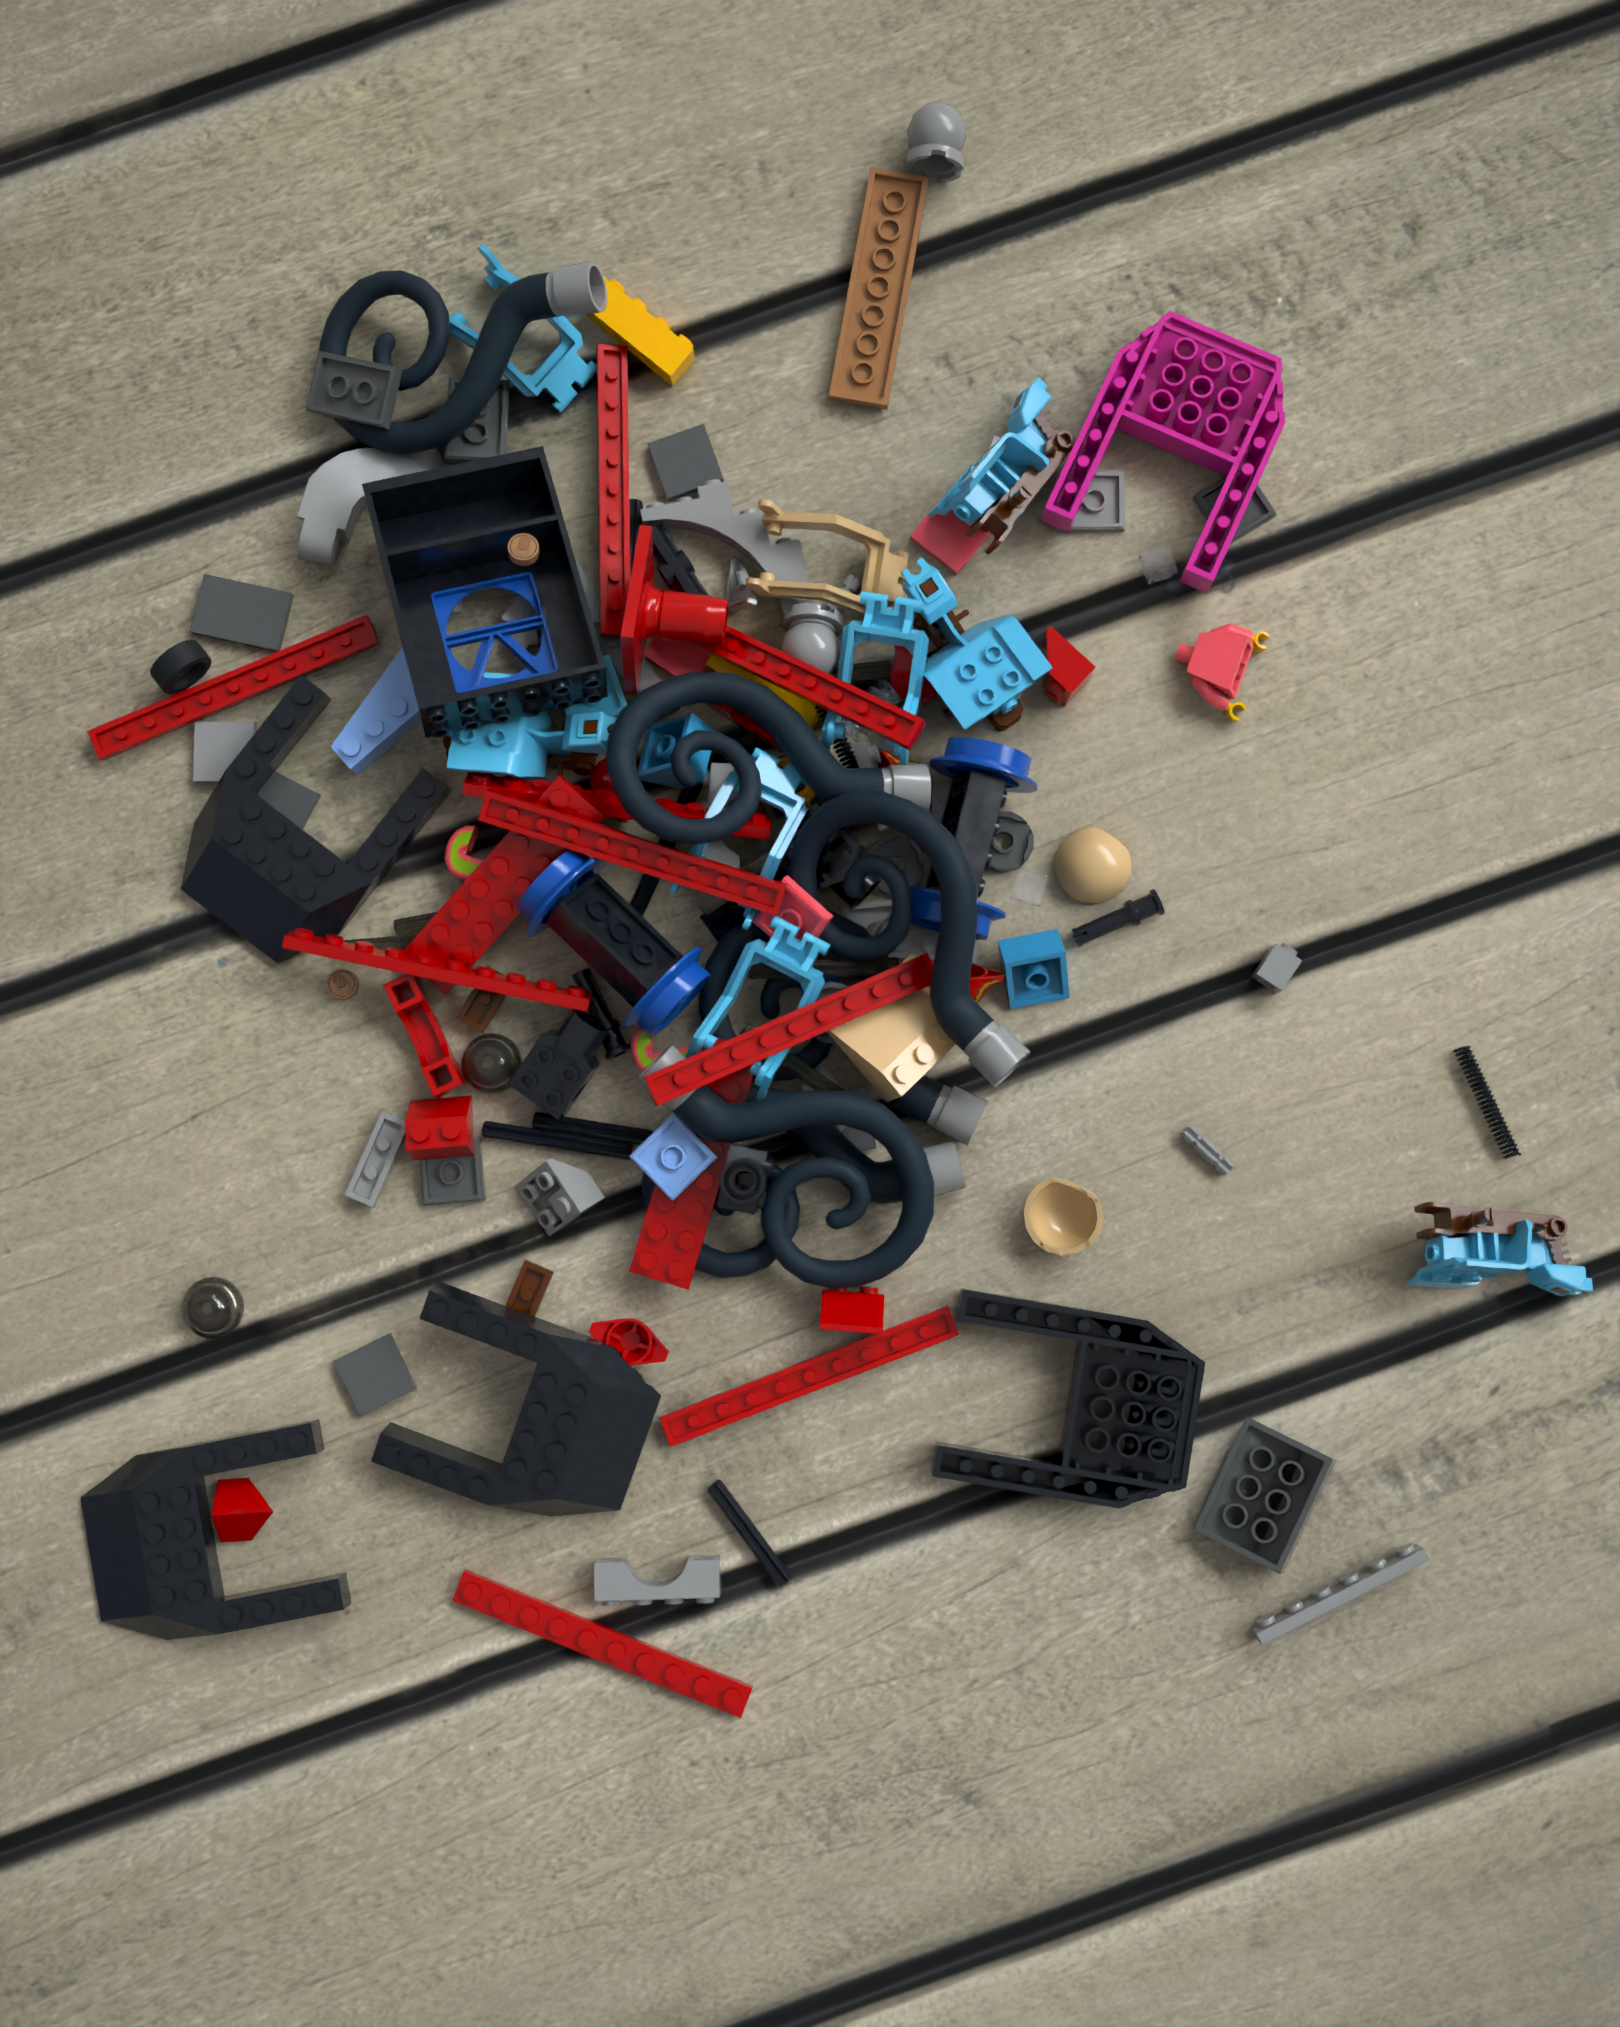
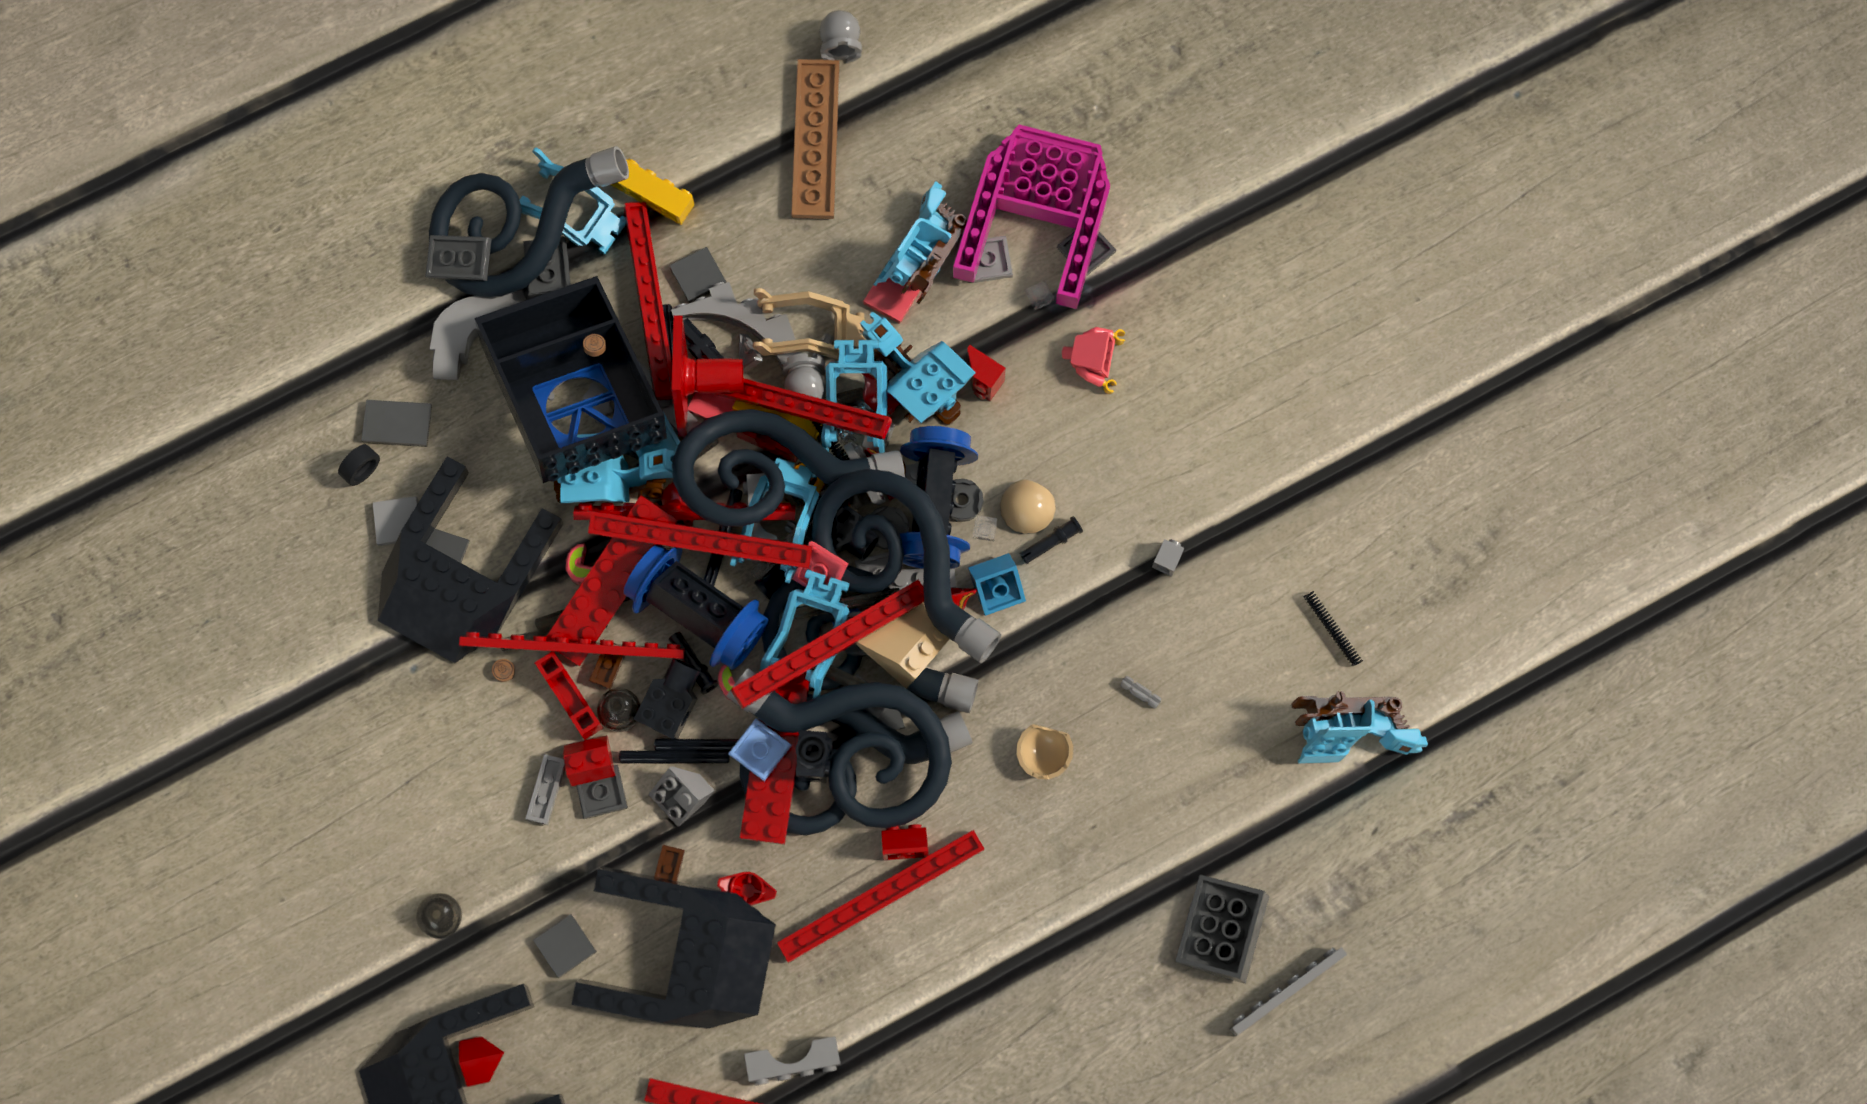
camera: 15 degrees left, 10 degrees down
(233, 687) = (397, 475): red plate -> none
(381, 719) = (508, 479): light blue wedge -> none
(659, 744) = (707, 474): dark azure slope -> none
(749, 1533) = (854, 1017): black axle -> none
(1125, 1410) = (1112, 883): black wedge -> none

